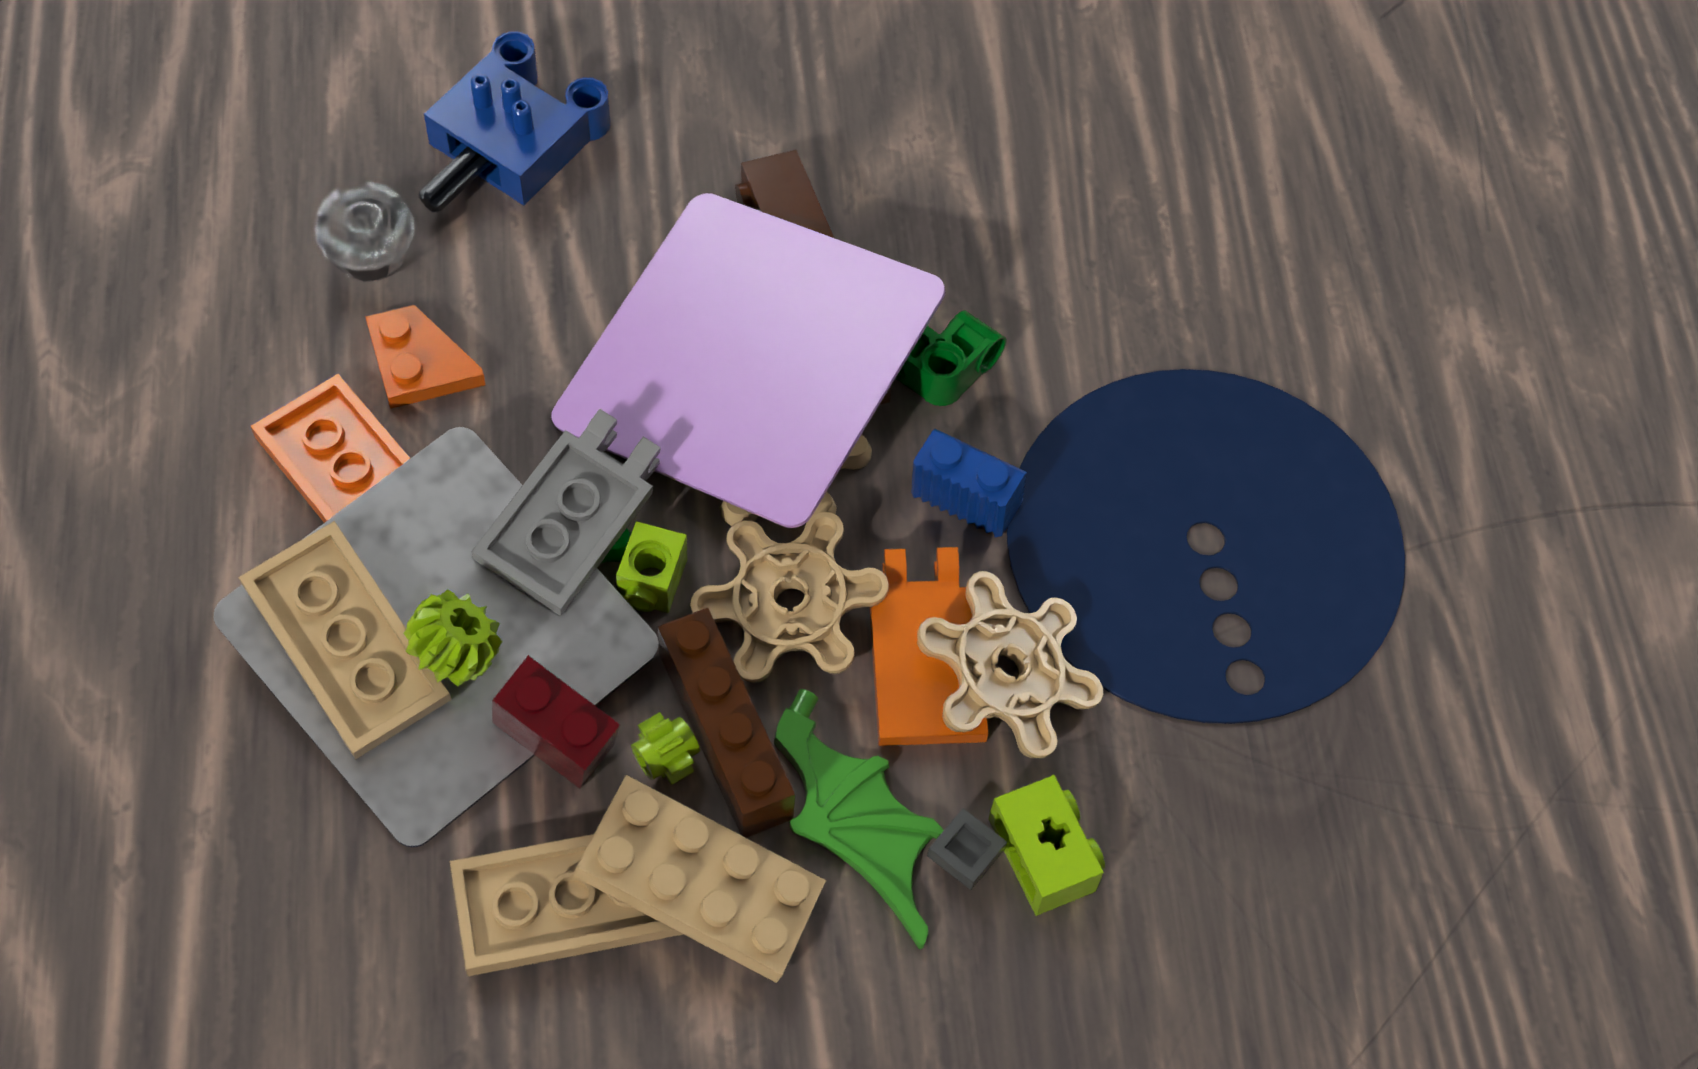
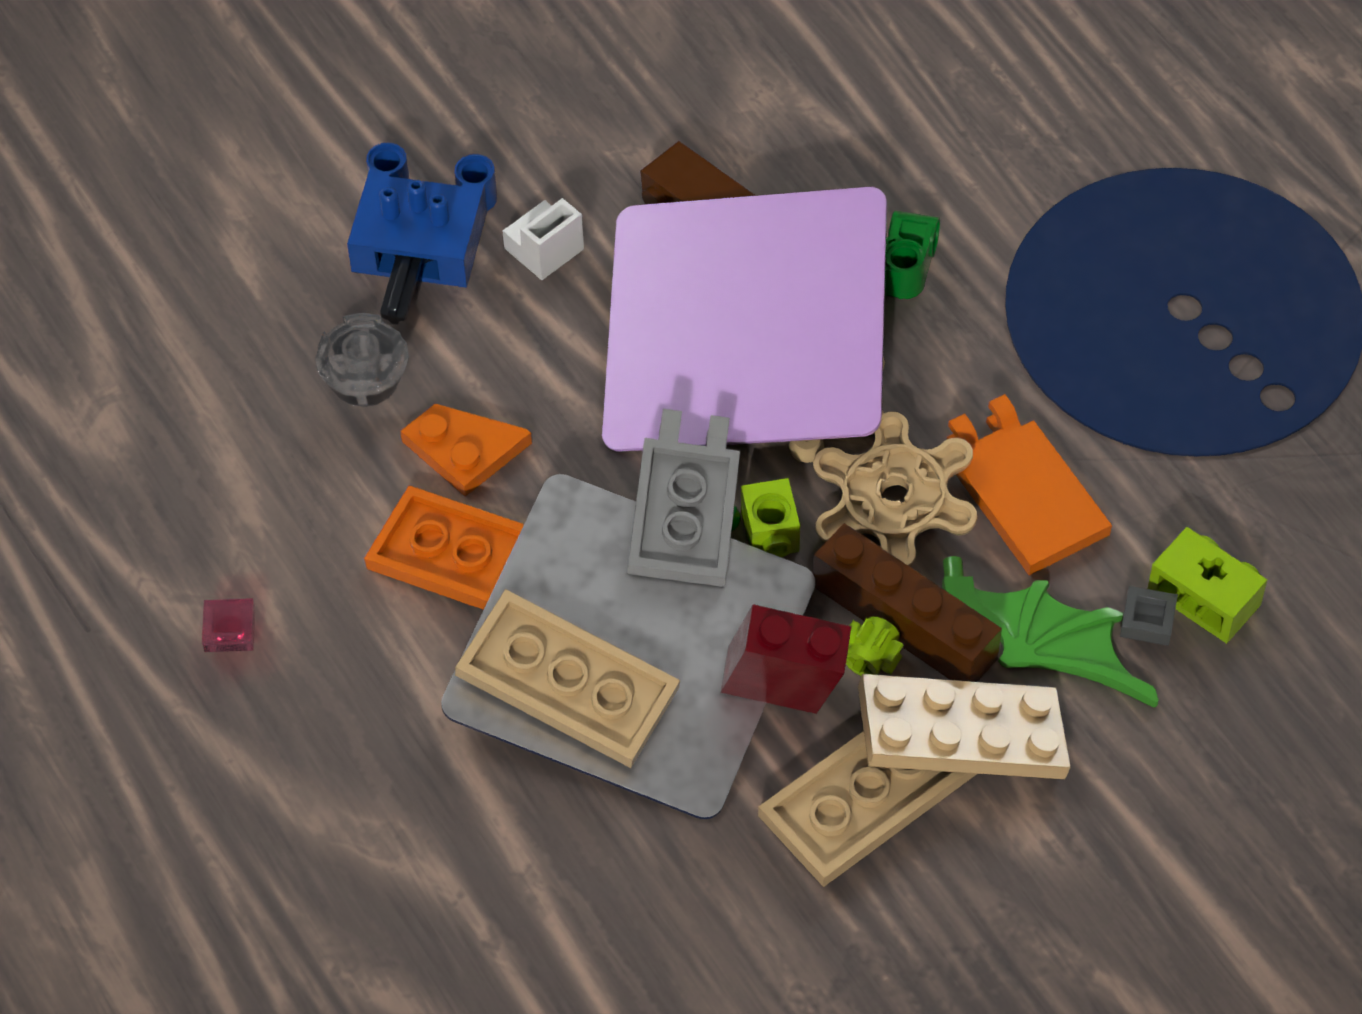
camera: 20 degrees left, 5 degrees down
(85, 433) = (228, 625): none -> clear pink plate
(452, 637) = (659, 634): lime gear -> none
(619, 190) = (545, 237): none -> white piece
(967, 482) = (980, 343): blue brick -> none
(1031, 643) = (1104, 440): tan plate -> none

